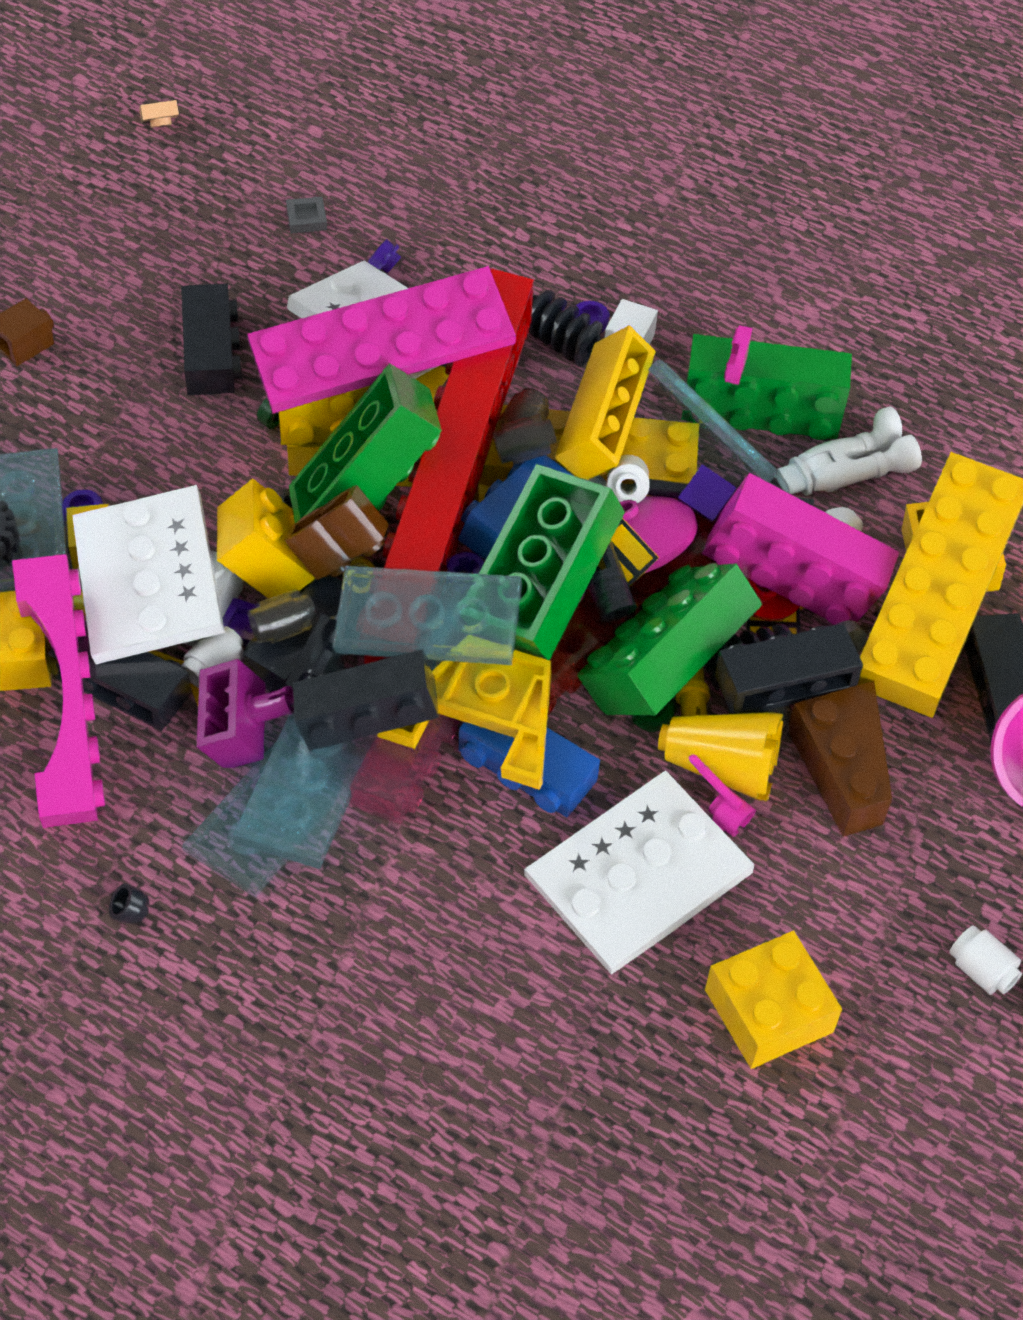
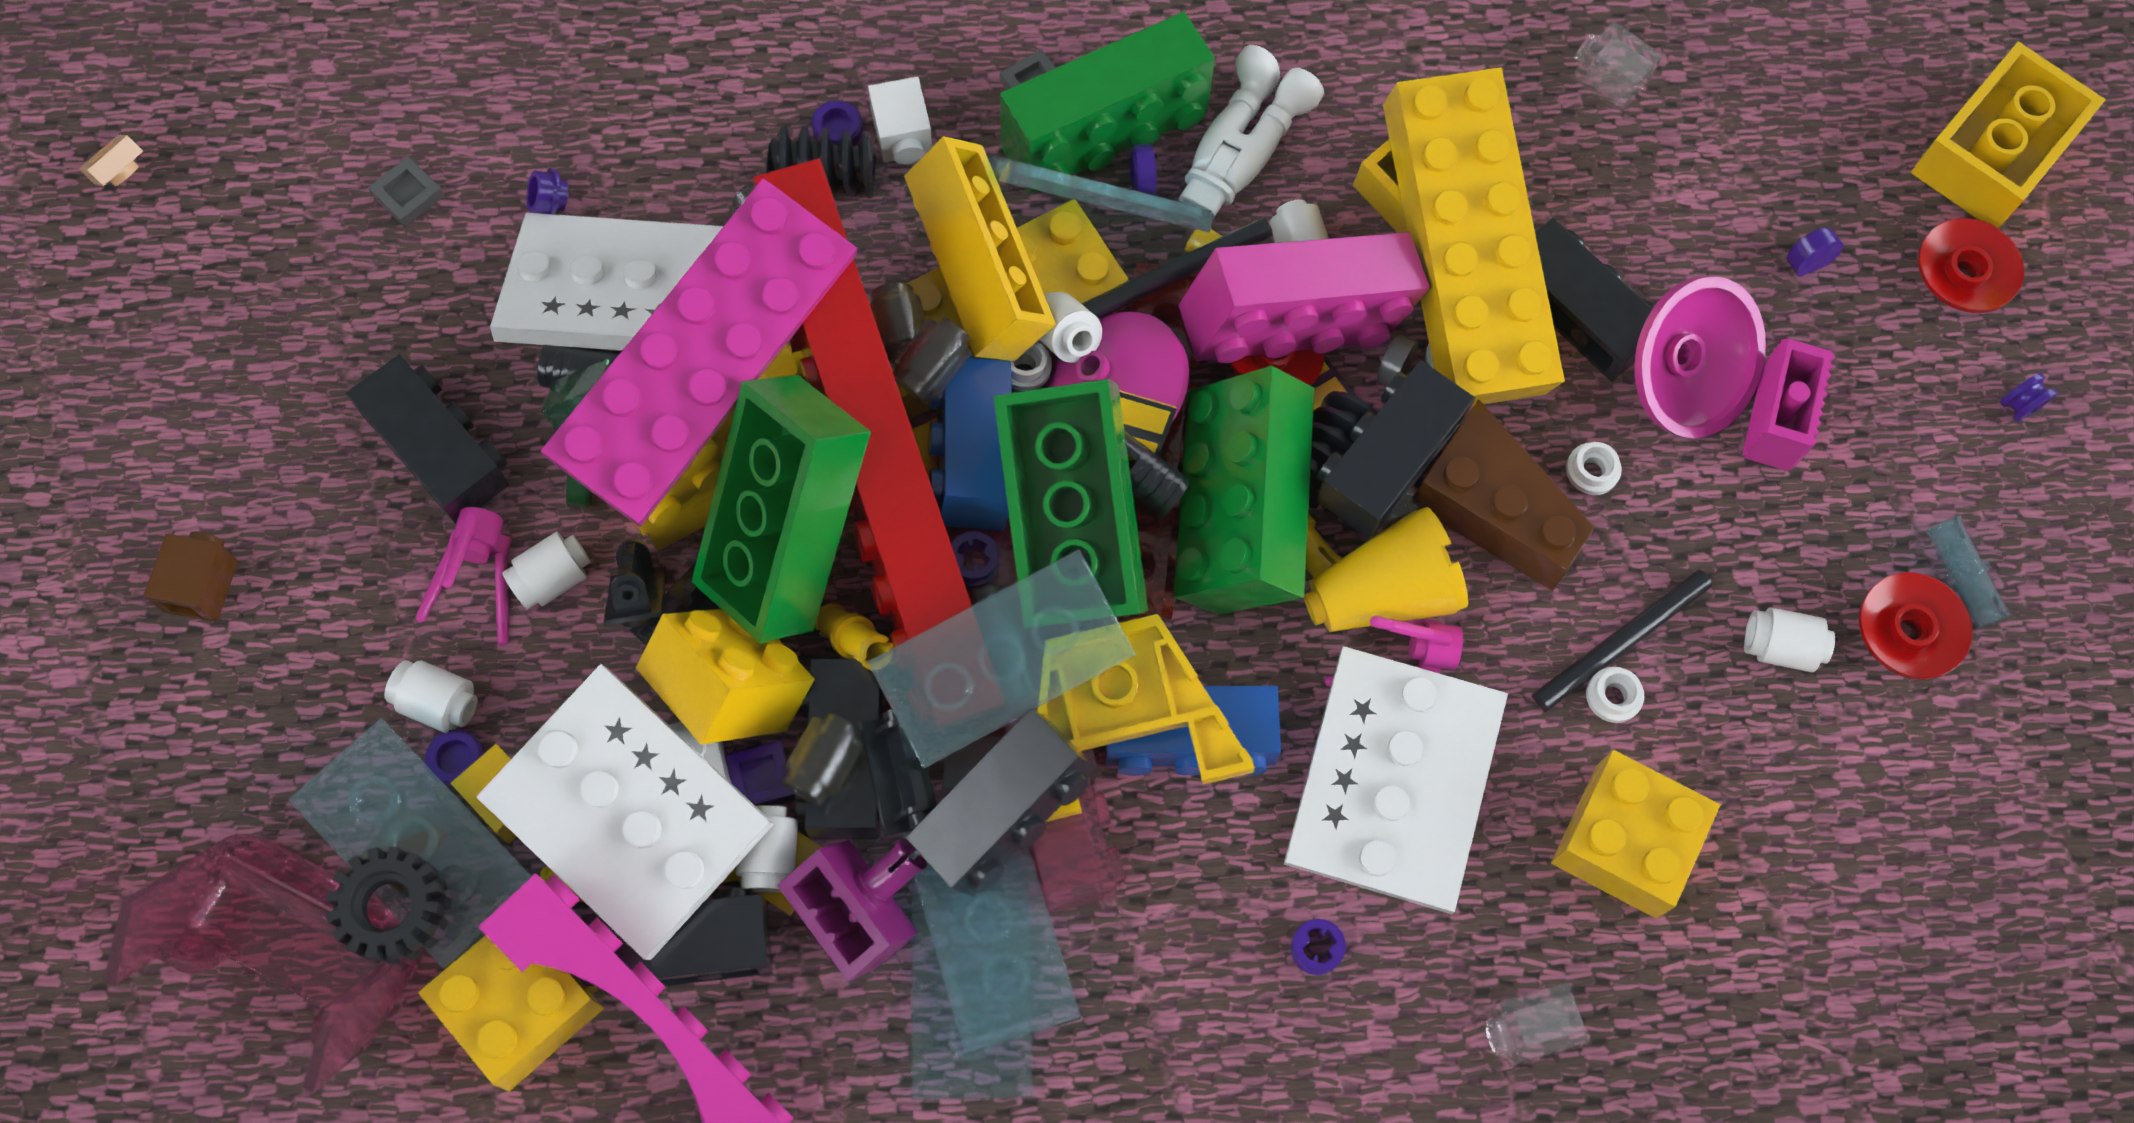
camera: 35 degrees left, 15 degrees up
(96, 465) = (431, 695): none -> white brick
(188, 404) = (474, 540): none -> dark pink plant
(216, 443) = (547, 570): none -> white brick
(262, 467) = (638, 590): none -> black hinge
(337, 533) = (818, 622): reddish brown brick -> none
(514, 941) = (1334, 954): none -> dark purple bush
(608, 1064) = (1536, 1025): none -> clear brick
(707, 493) = (1155, 287): dark purple tile -> none
(738, 355) = (1078, 95): dark pink tile -> none
(765, 438) = (1143, 168): none -> dark purple tile
(833, 906) = (1626, 683): none -> white plate
(867, 892) = (1622, 640): none -> black bar
(933, 770) = (1596, 453): none -> white plate

